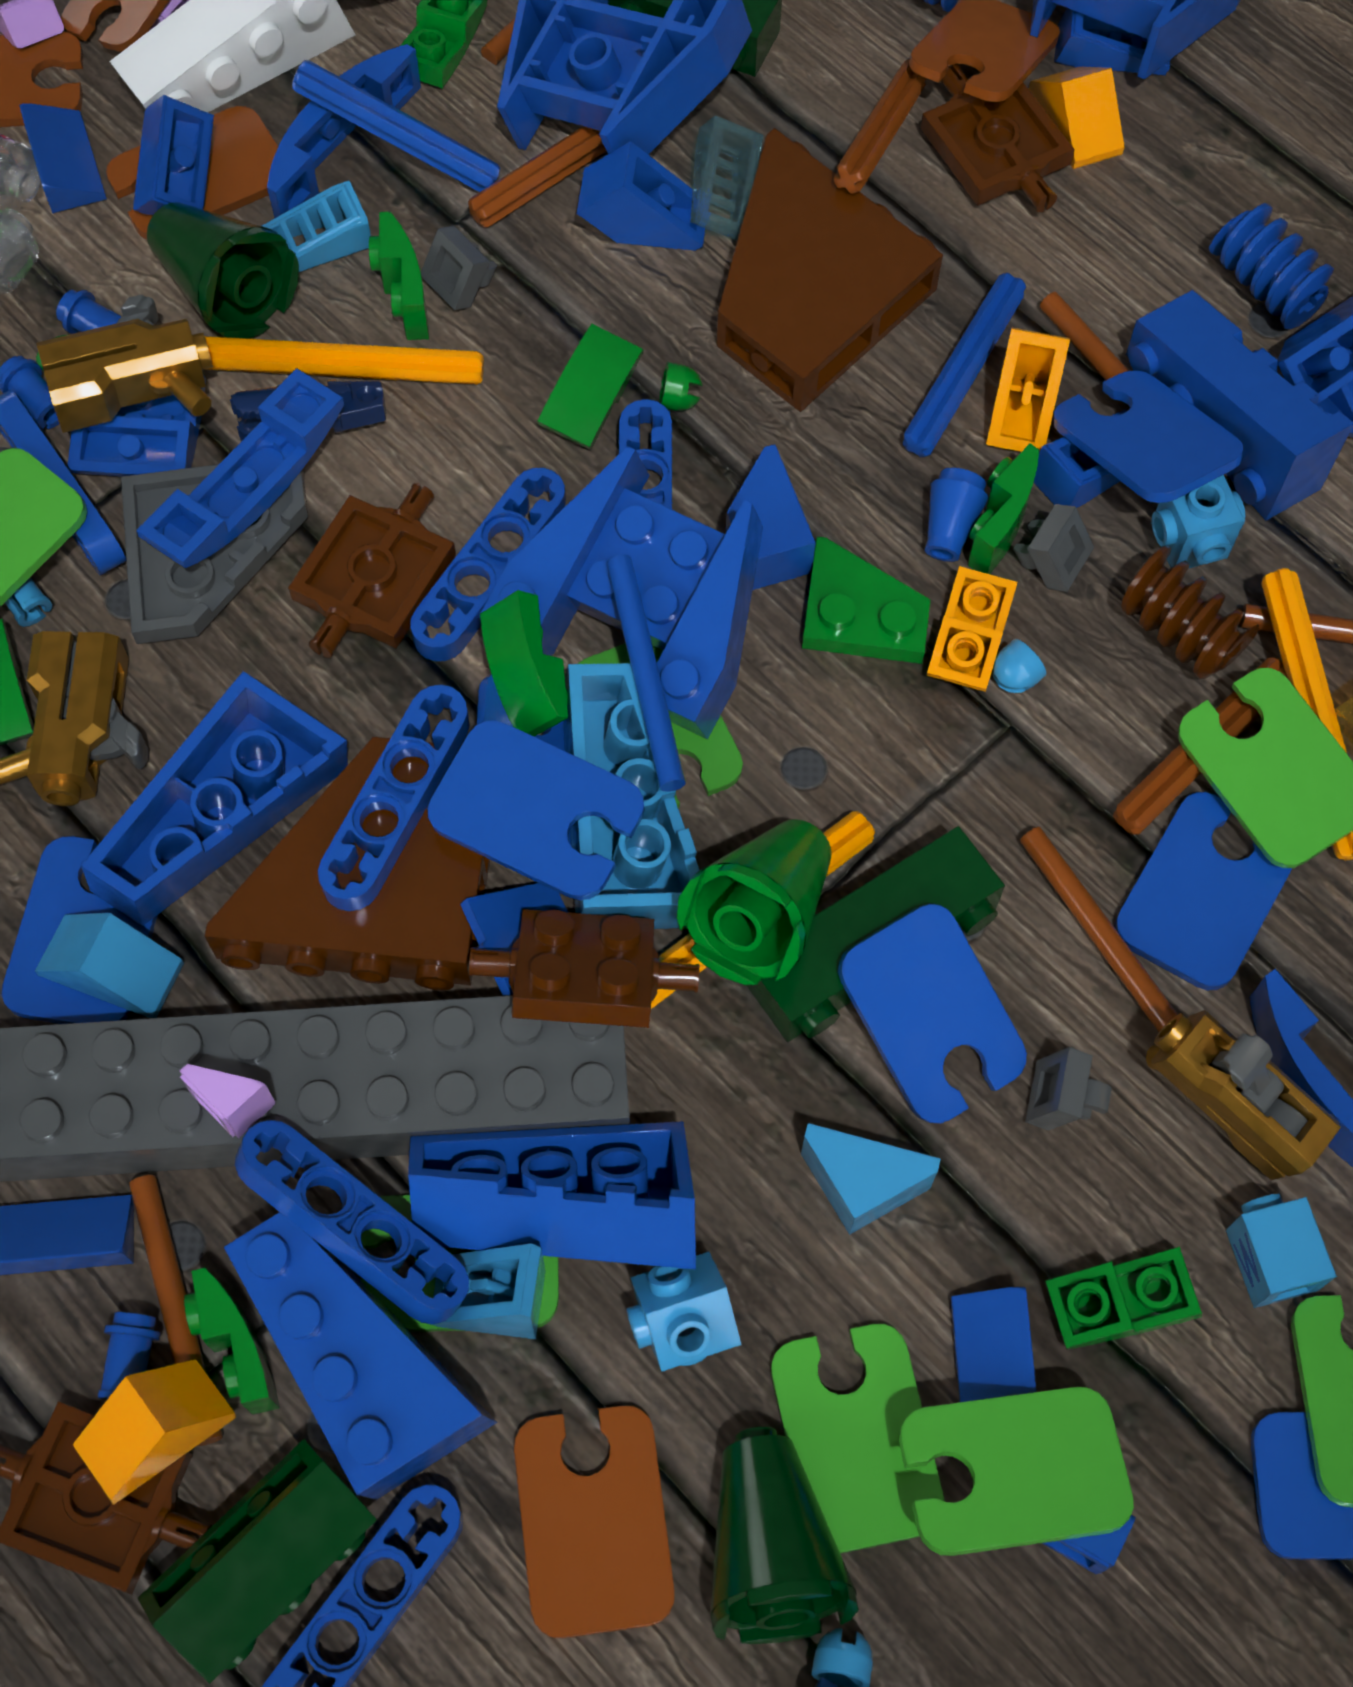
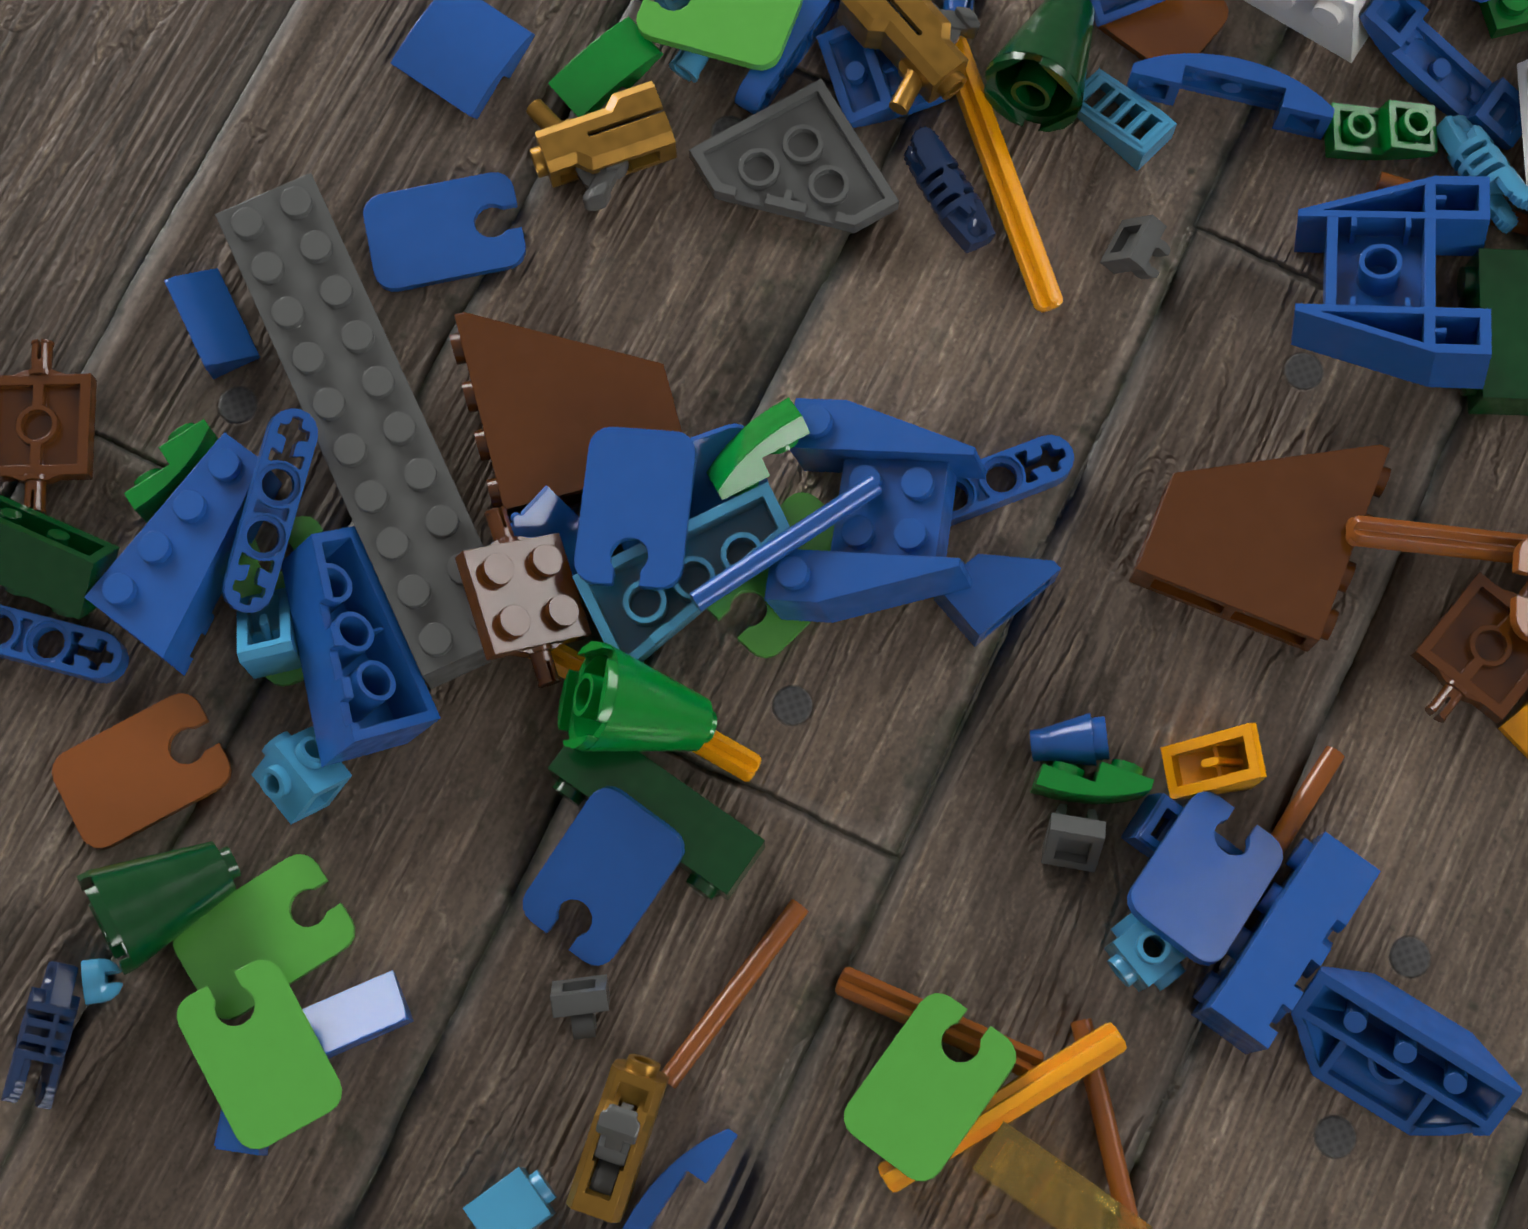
camera: 70 degrees right, 10 degrees up
(110, 962) = (418, 260): dark azure slope -> none
(127, 1348) = (141, 405): blue pin -> none
(150, 1425) = (92, 443): light orange slope -> none
(166, 1273) = (203, 409): dark orange bar -> none
(213, 798) = (576, 271): blue wedge -> none
(229, 1098) = (315, 383): lavender slope -> none
(250, 477) = (849, 171): blue slope -> none
(372, 570) = (821, 302): reddish brown plate -> none
(394, 126) = (1245, 137): blue axle -> none
(401, 275) = (1116, 198): green slope -> none
(401, 798) = (612, 410): blue beam -> none
(482, 559) = (871, 380): blue beam -> none
(535, 176) = (1259, 268): dark orange axle -> none
(590, 386) = (1066, 399): green slope -> none
(638, 201) = (1270, 370): blue slope -> none
(675, 387) = (1099, 471): green hinge -> none
(745, 148) = (1362, 398): clear light blue slope -> none
(862, 609) = (952, 698): green wing -> none
(863, 1175) = (454, 868): dark azure slope -> none
(964, 365) = (1233, 701): blue axle -> none
(972, 629) = (968, 795): light orange slope -> none
(1017, 667) = (945, 844): dark azure hinge -> none
(1123, 1299) = (435, 1101): green slope -> none
(1185, 616) = (1049, 967): reddish brown piece -> none
(1194, 905) = (792, 1060): blue piece -> none
(1272, 266) = (1453, 938): blue piece -> none

